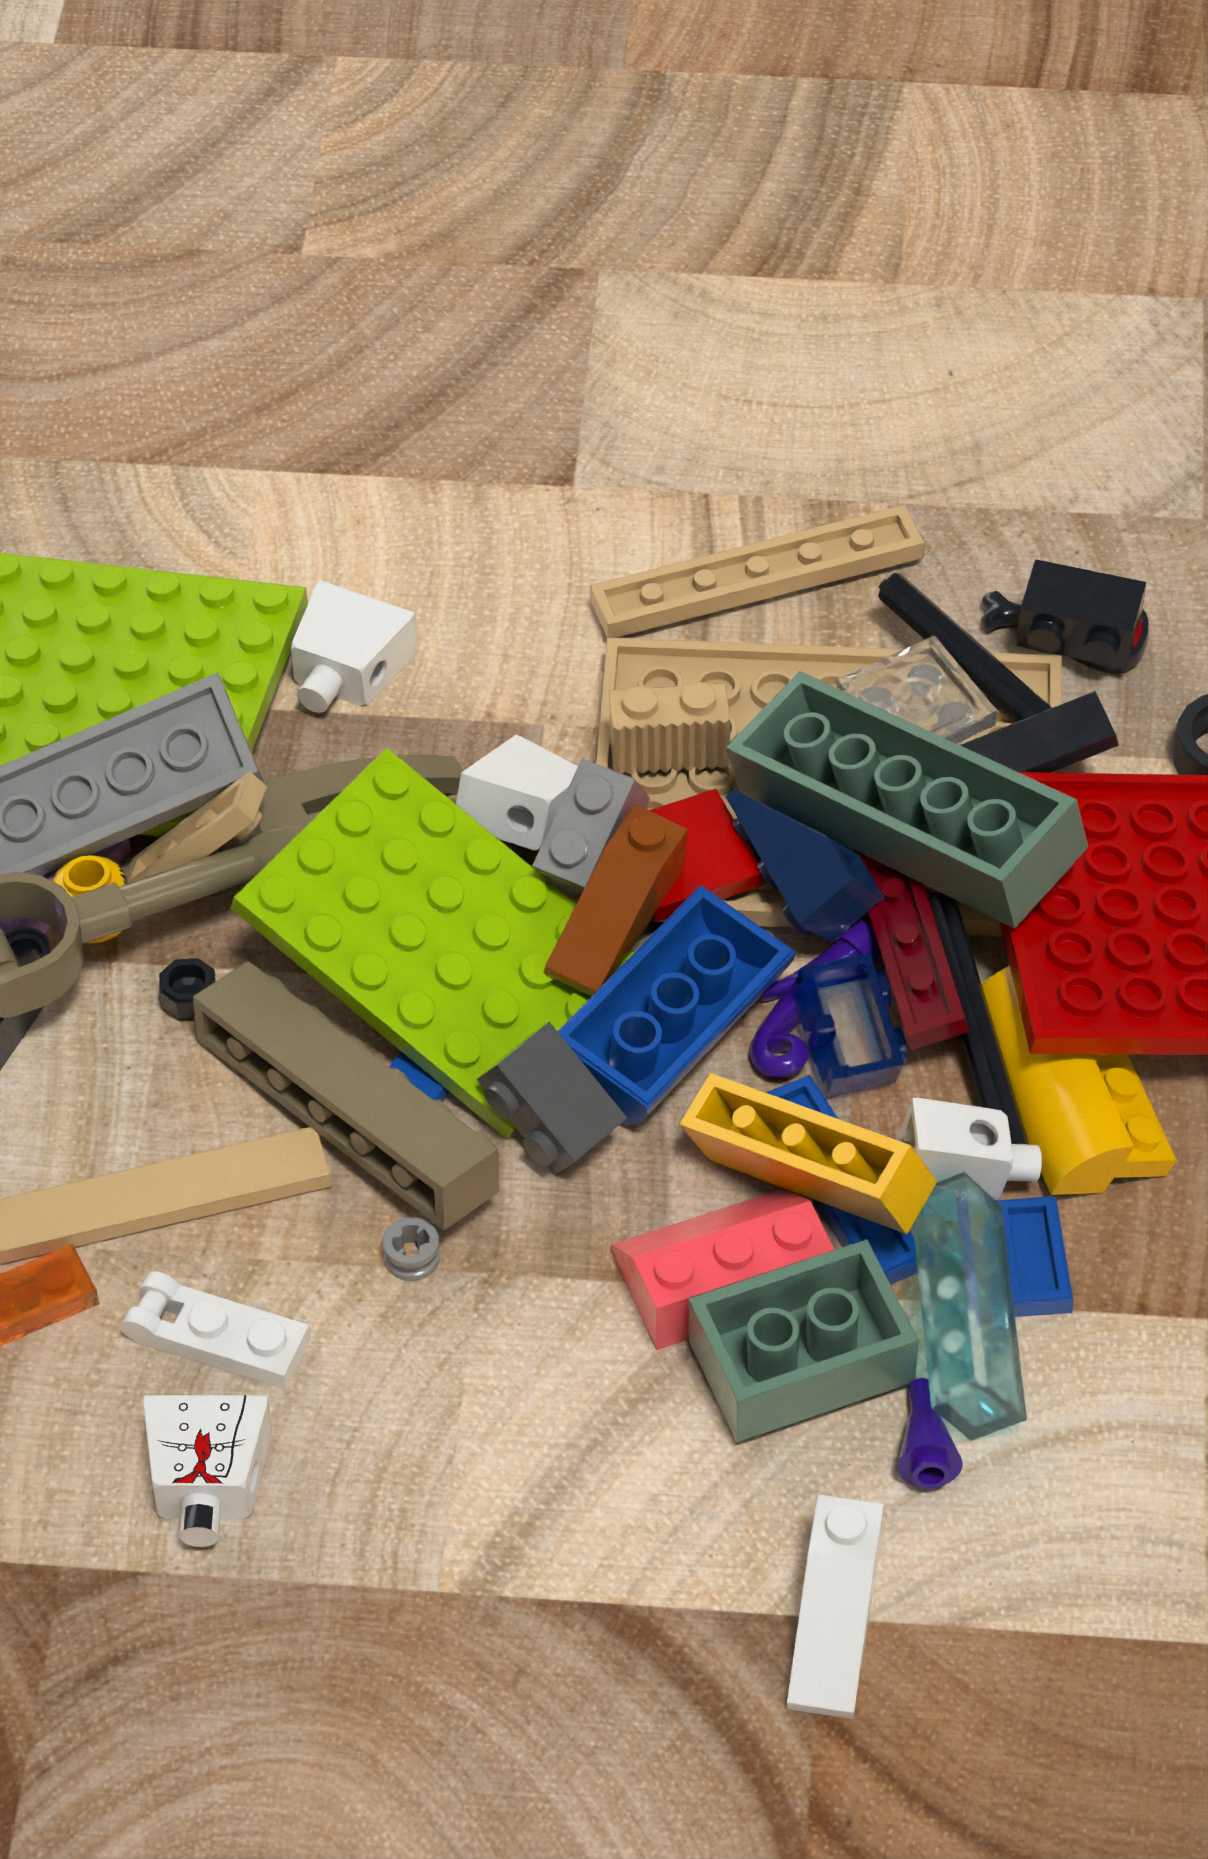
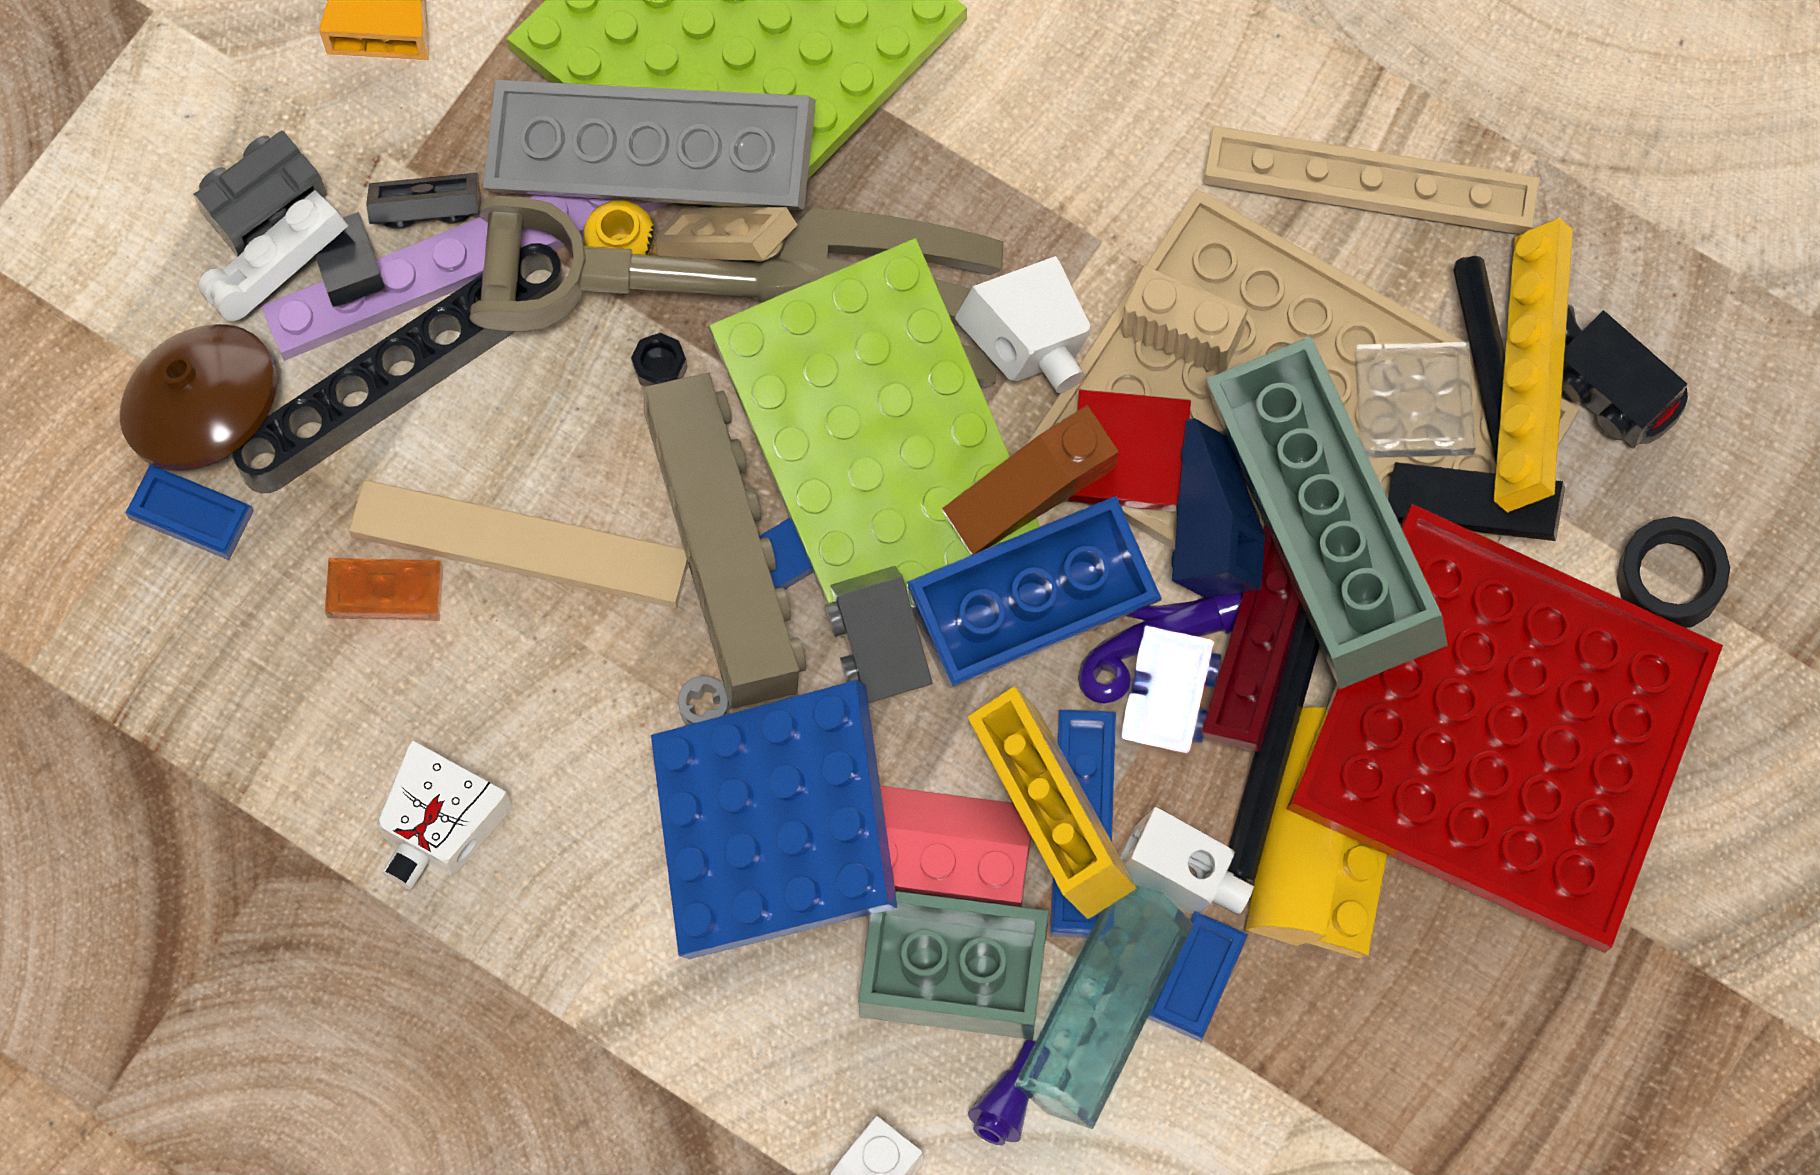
camera: 30 degrees right, 20 degrees up
(216, 1331) = (514, 699): white plate -> none
(349, 647) = (971, 85): white torso -> none
(549, 1299) = (773, 820): none -> blue plate
(585, 824) = (1048, 394): light grey brick -> none
(1006, 626) = (1533, 366): none -> yellow plate

